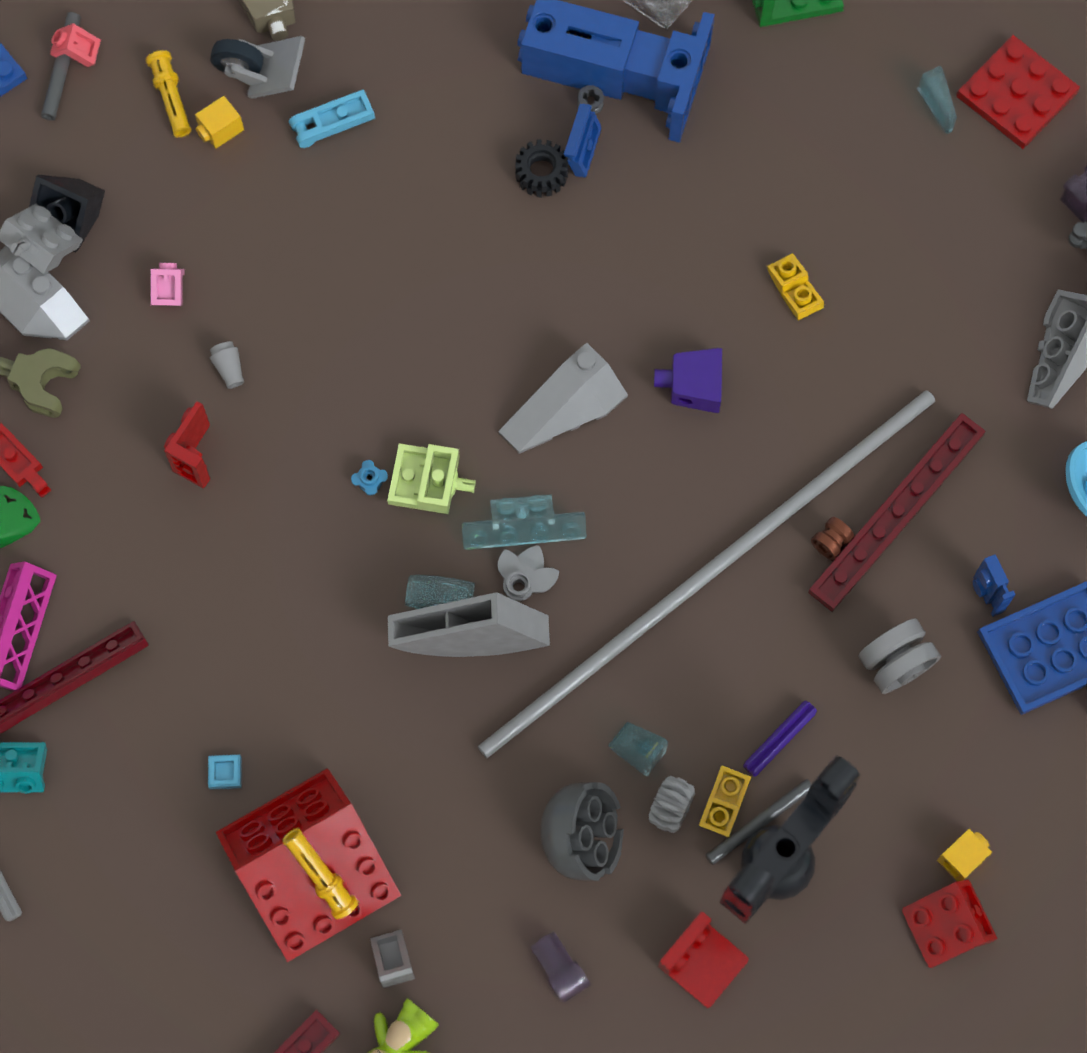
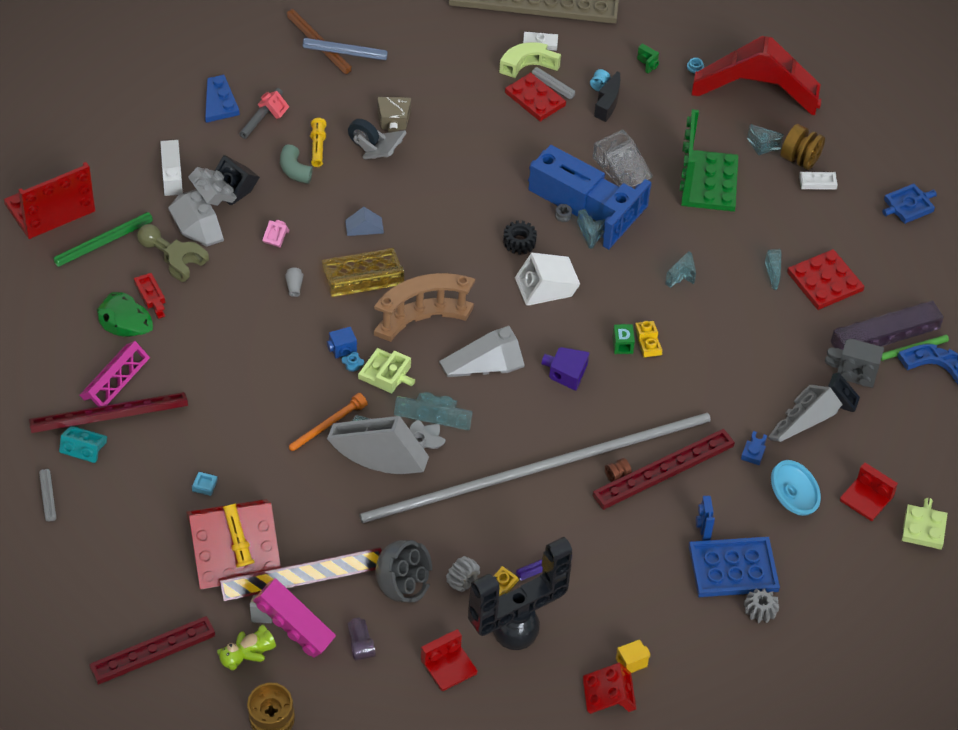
camera: 15 degrees right, 20 degrees down
(145, 153) = (292, 167): none -> sand green cylinder
(181, 446) = (253, 309): red bracket -> none
(218, 122) = (339, 163): yellow brick -> none
(295, 220) = (364, 223): none -> sand blue slope
(332, 118) = (406, 179): medium azure plate -> none
(336, 323) = (363, 279): none -> clear yellow fence
(342, 451) = (342, 342): none -> blue brick
(403, 550) = (357, 402): none -> orange piece
(430, 885) = (301, 573): none -> tile
(436, 336) = (398, 314): none -> medium nougat fence
(454, 979) = (294, 618): none -> dark pink brick
(582, 140) = (549, 228): blue plate -> none
(609, 232) = (546, 278): none -> white slope
(639, 747) = (457, 543): clear light blue slope -> none
(642, 121) = (591, 230): none -> clear light blue slope
(760, 301) = (623, 339): none -> green brick
(808, 145) = (682, 269): none -> clear light blue slope
(899, 656) = (633, 537): light grey wheel -> none
(1014, 432) = (754, 449): none -> blue plate

